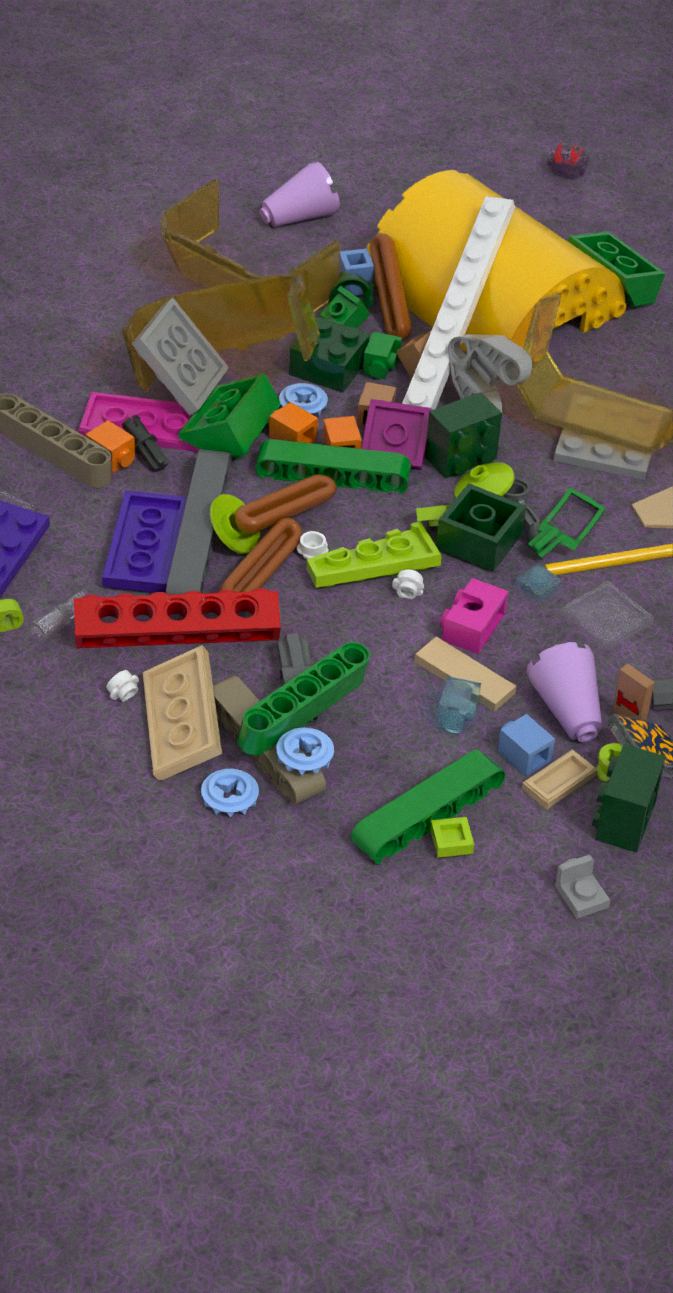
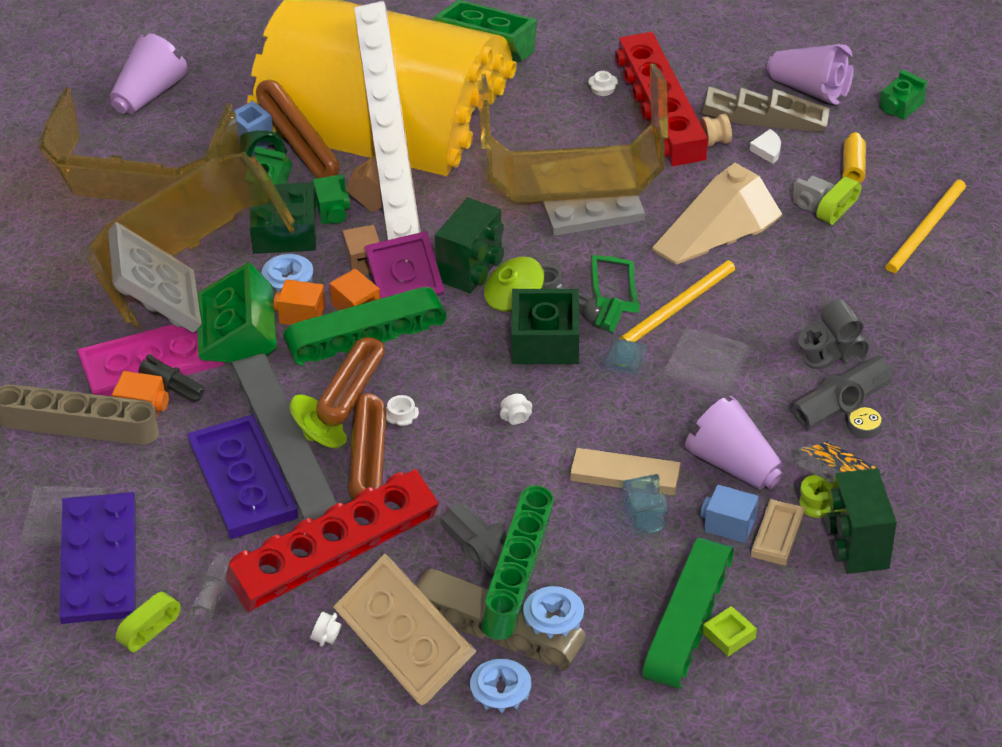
camera: 25 degrees left, 0 degrees up
(371, 559) = (473, 392): lime wing -> none
(431, 514) = (494, 331): lime plate -> none
(474, 615) = (598, 412): dark pink brick -> none
(487, 362) = (449, 168): light grey connector -> none
(580, 887) = (870, 624): light grey bracket -> none
(632, 693) = (796, 425): medium nougat tile -> none

